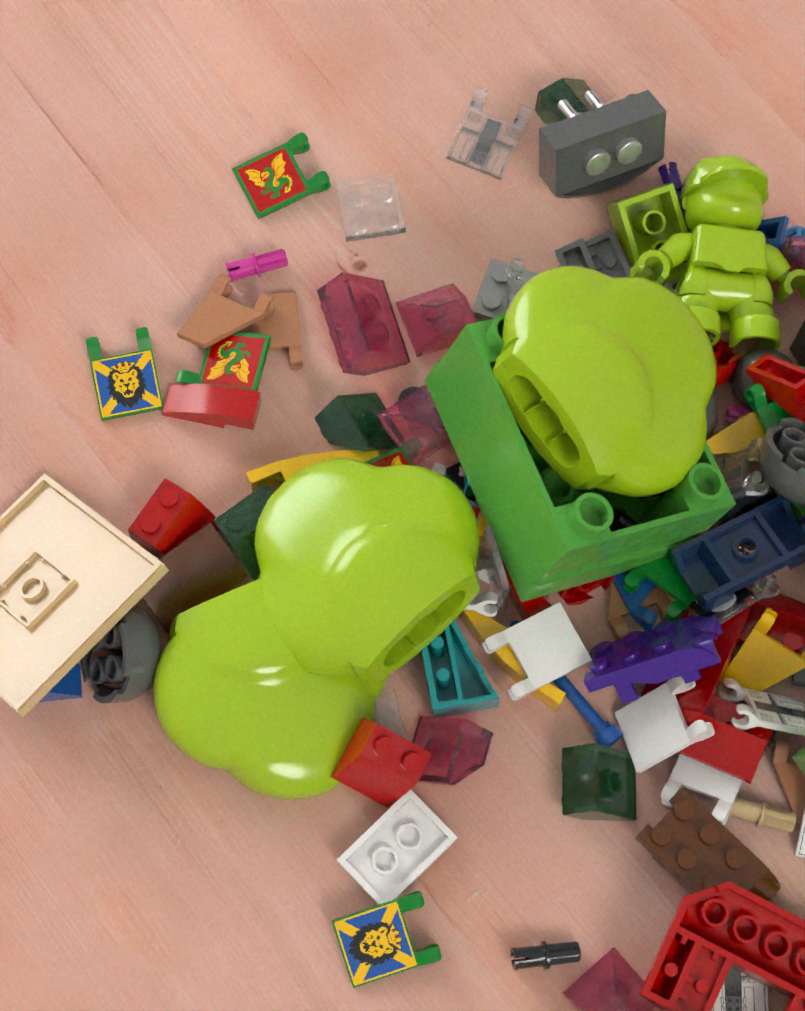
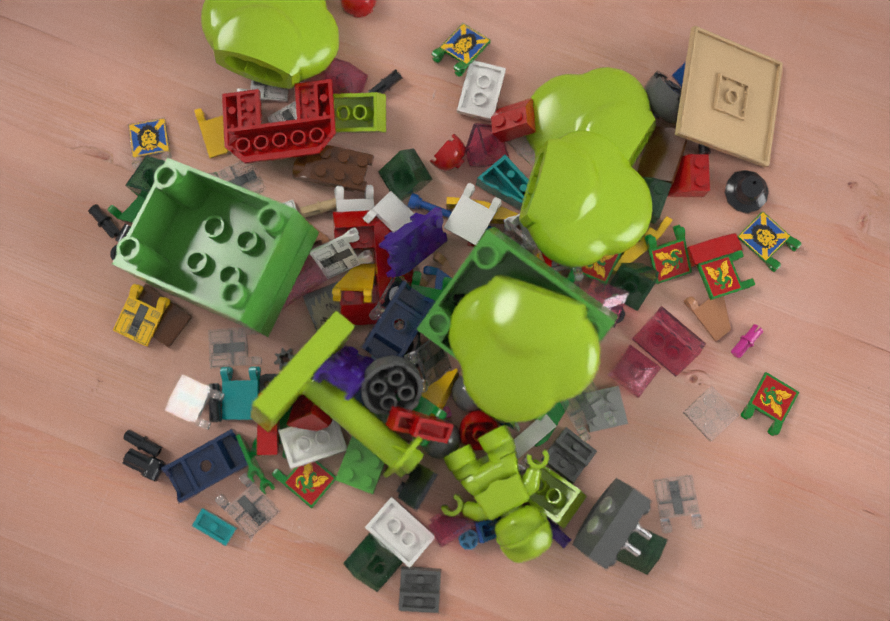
camera: 150 degrees right, 10 degrees up
(109, 468) = (746, 191): none -> black hat
(221, 317) = (744, 297): nougat flag -> none
(284, 427) = (671, 257): none -> flag
(514, 768) = (450, 155): none -> red cylinder
(616, 923) = (360, 112): none -> lime slope

